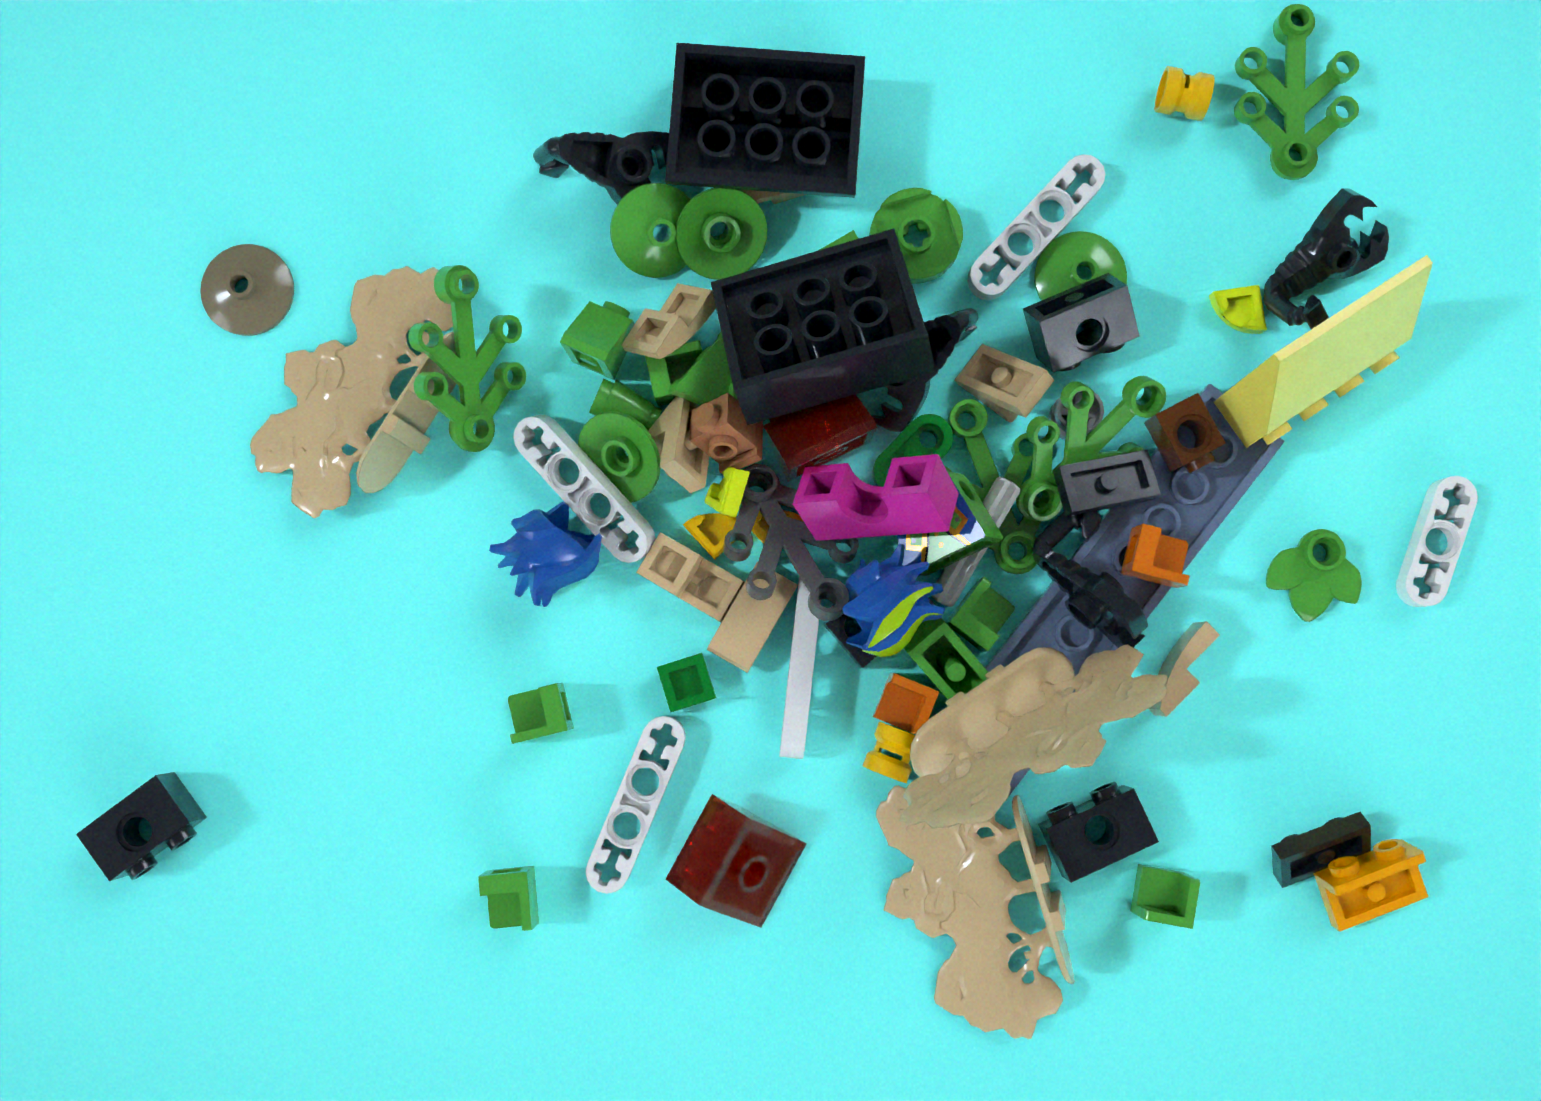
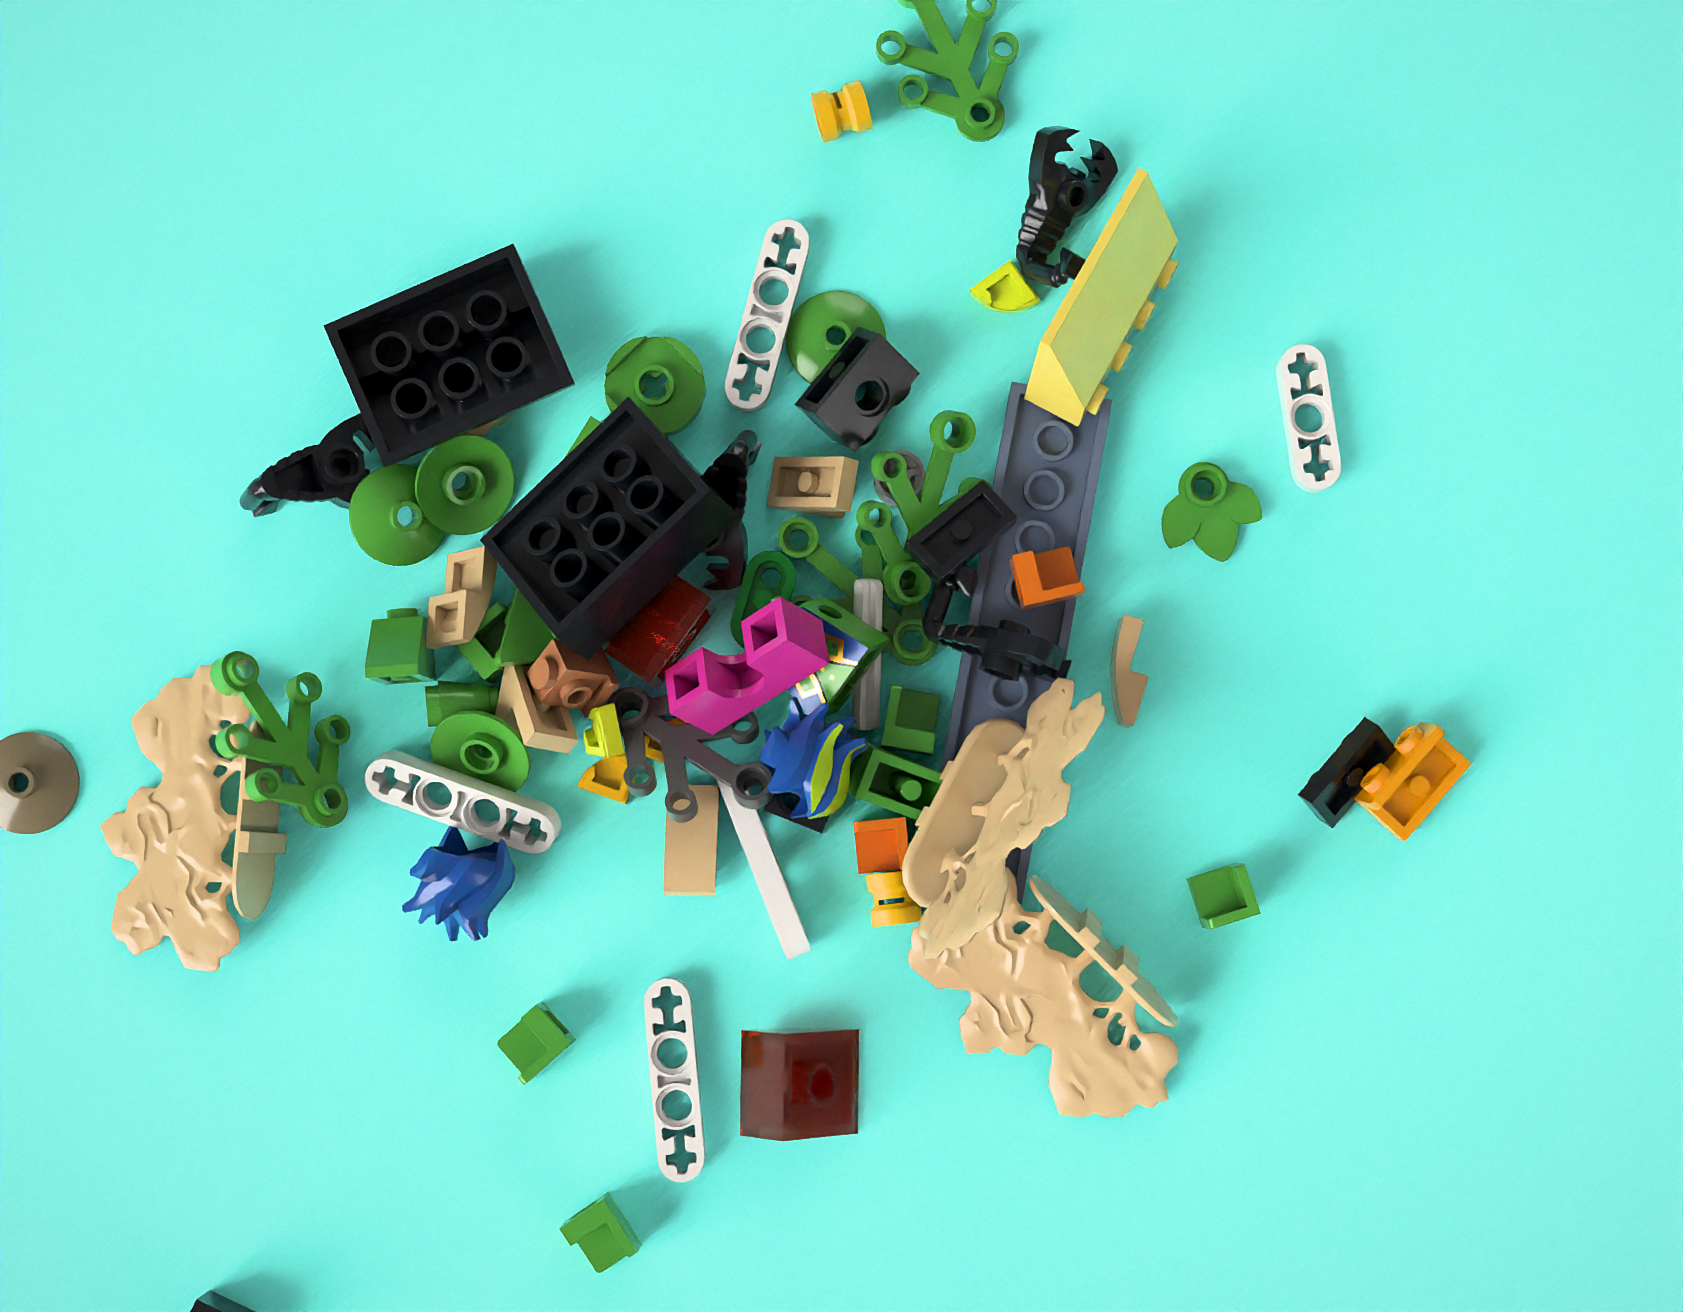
camera: 25 degrees left, 0 degrees up
(686, 682) = (661, 936): green plate -> none
(690, 577) = (611, 833): tan slope -> none
(1125, 831) = (1155, 855): black brick -> none
(1195, 416) = (1005, 424): reddish brown brick -> none

